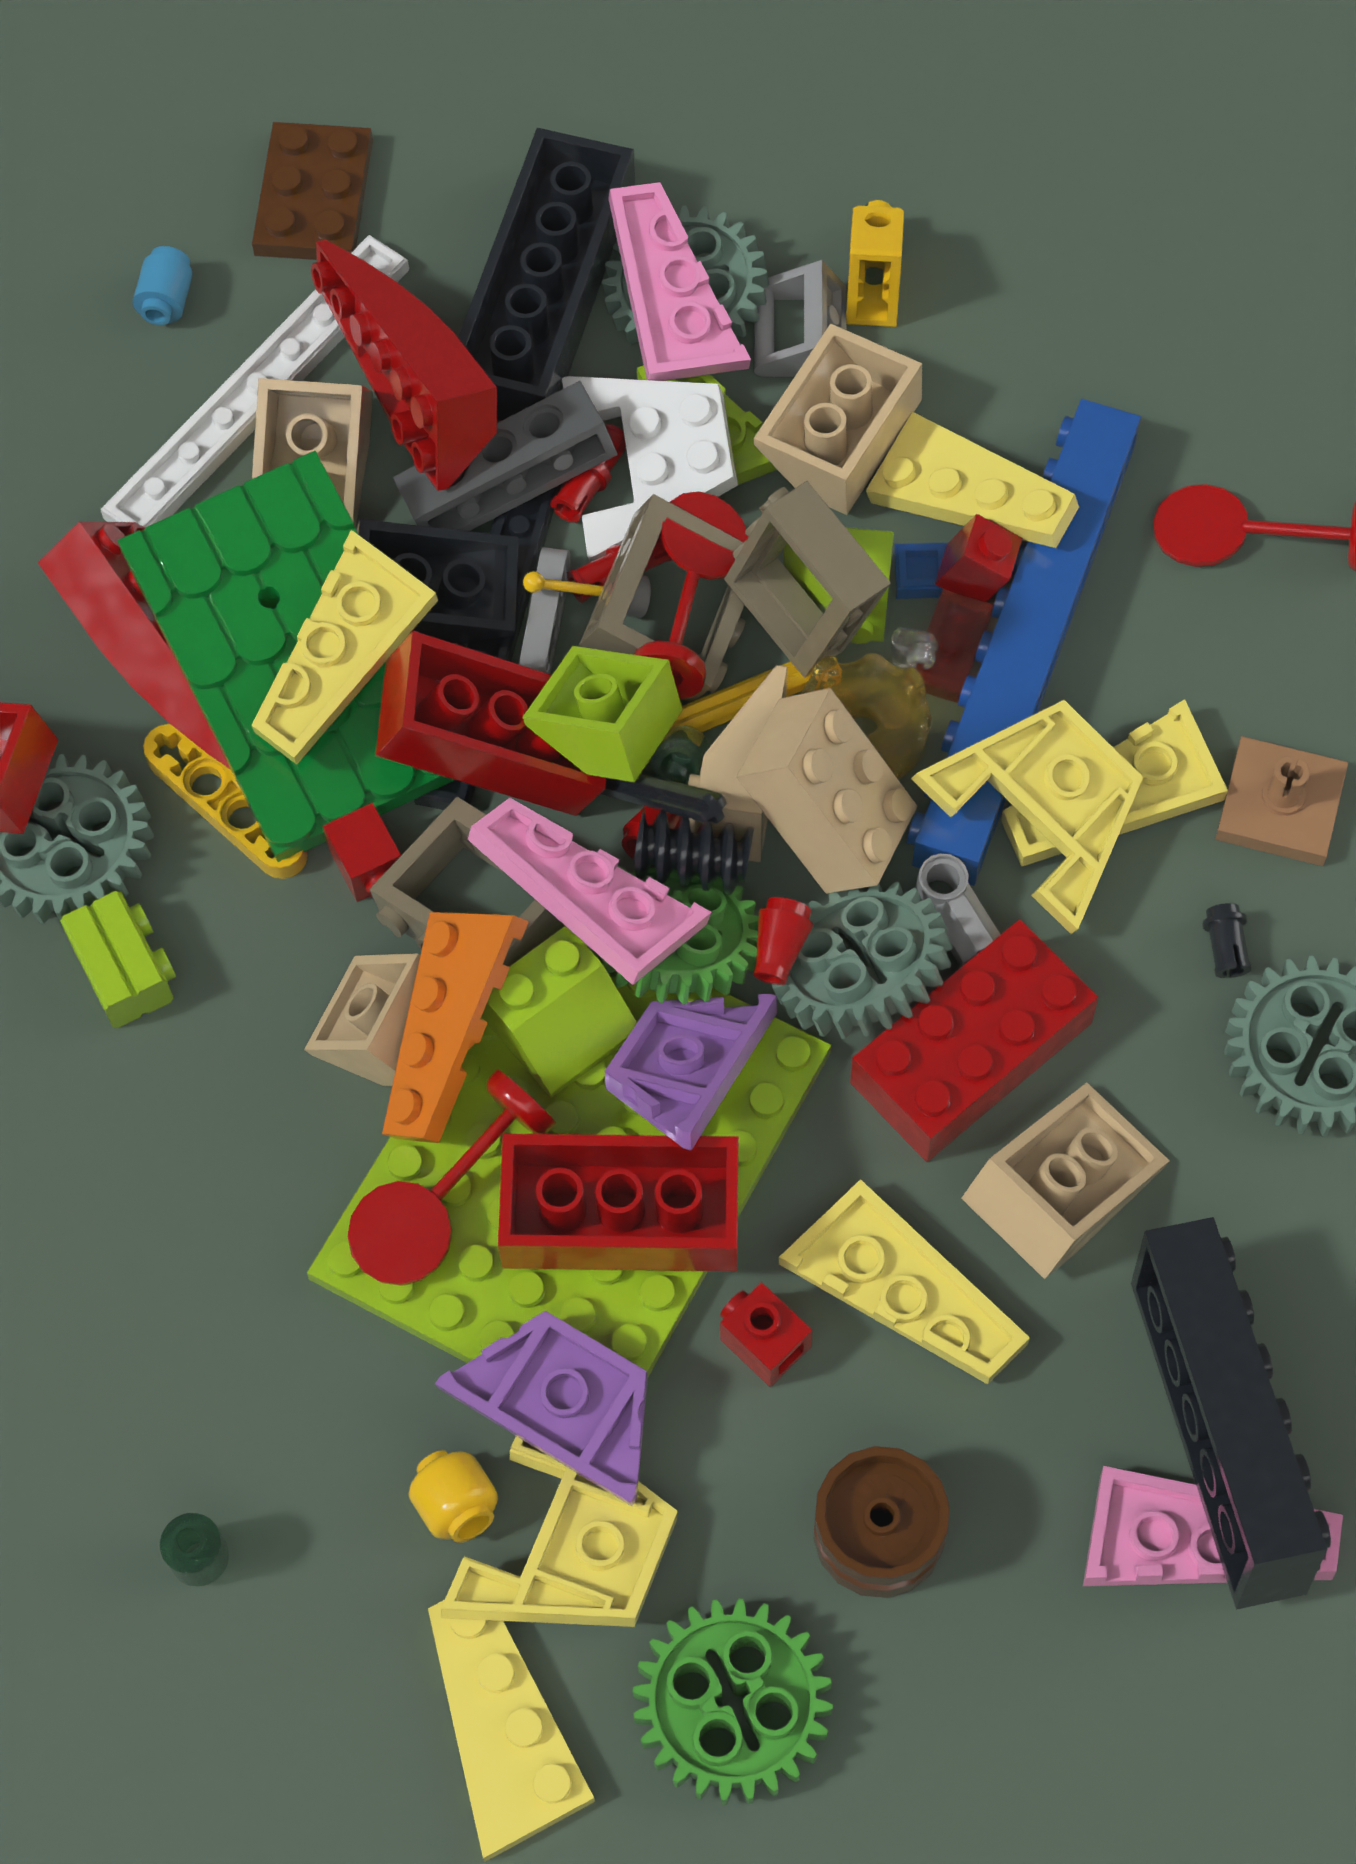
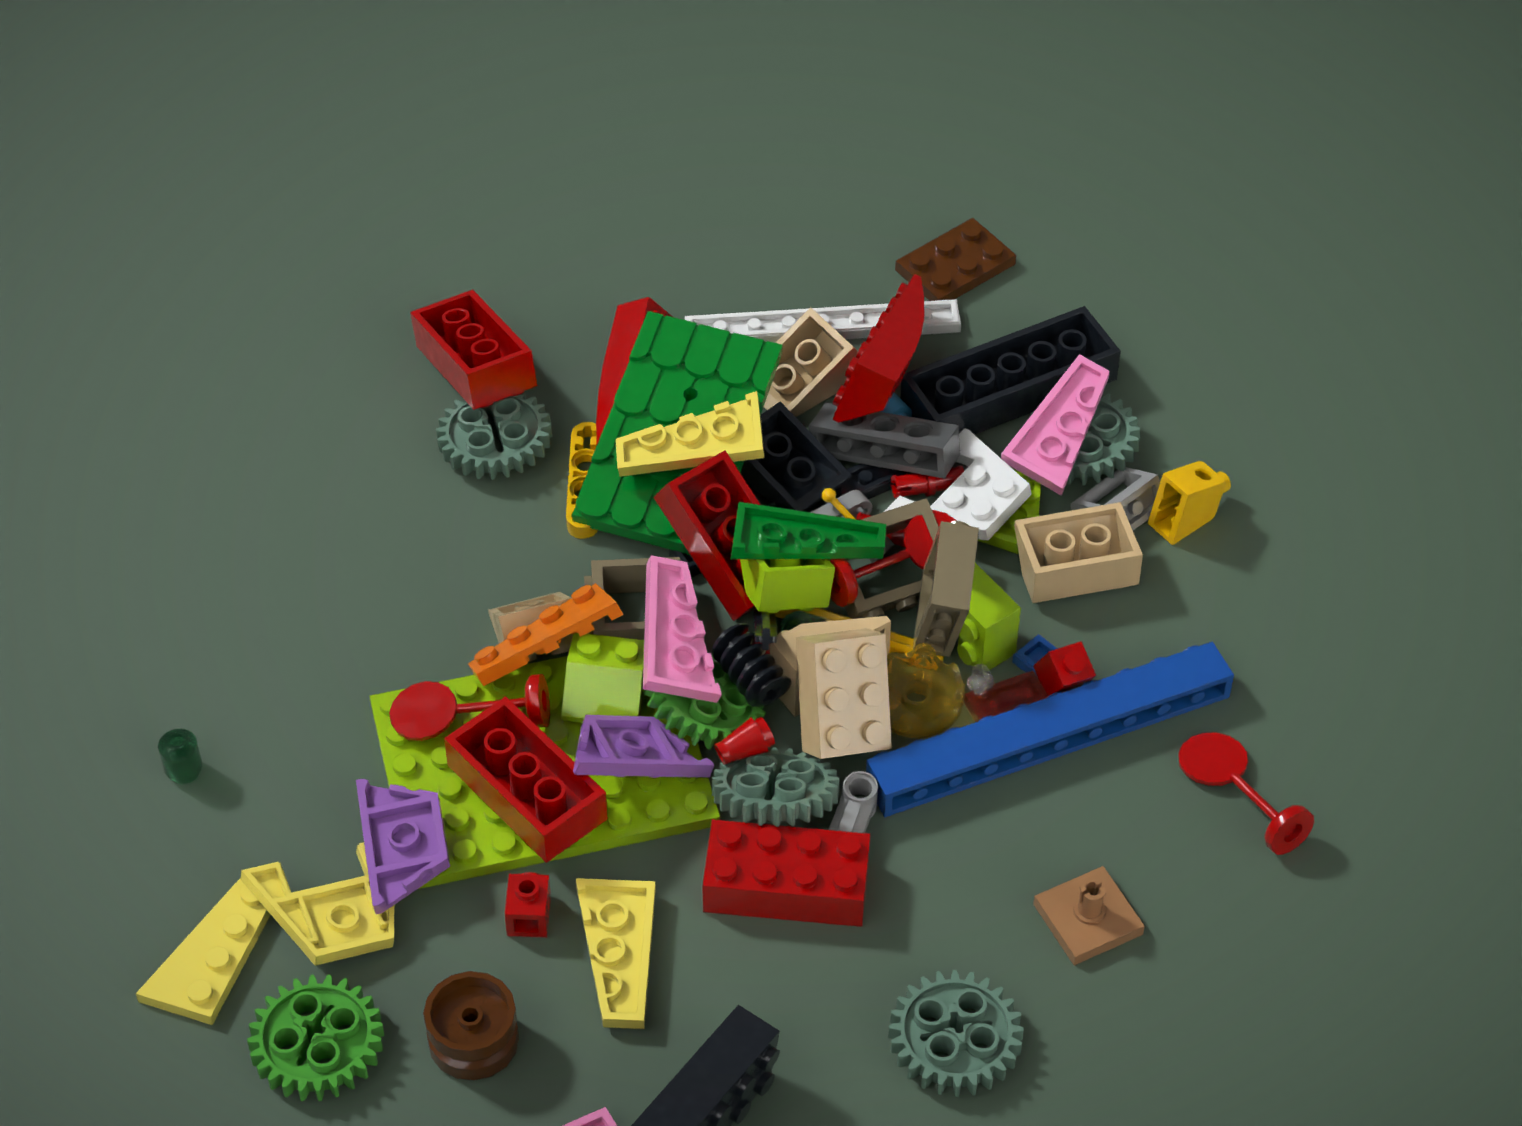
camera: 45 degrees right, 15 degrees down
(118, 959) = (455, 500): lime brick -> none
(163, 285) = (830, 246): dark azure brick -> none
(361, 849) = (615, 541): red brick -> none
(453, 1496) = (310, 838): yellow head -> none
(587, 661) = (795, 534): none -> green wing
(955, 479) = (1107, 632): light yellow wing -> none
(1062, 783) = (971, 794): light yellow wing -> none
(1063, 1179) = (752, 968): tan slope -> none
(1176, 780) = (1020, 840): light yellow wing -> none
(1227, 939) = (975, 946): black pin -> none

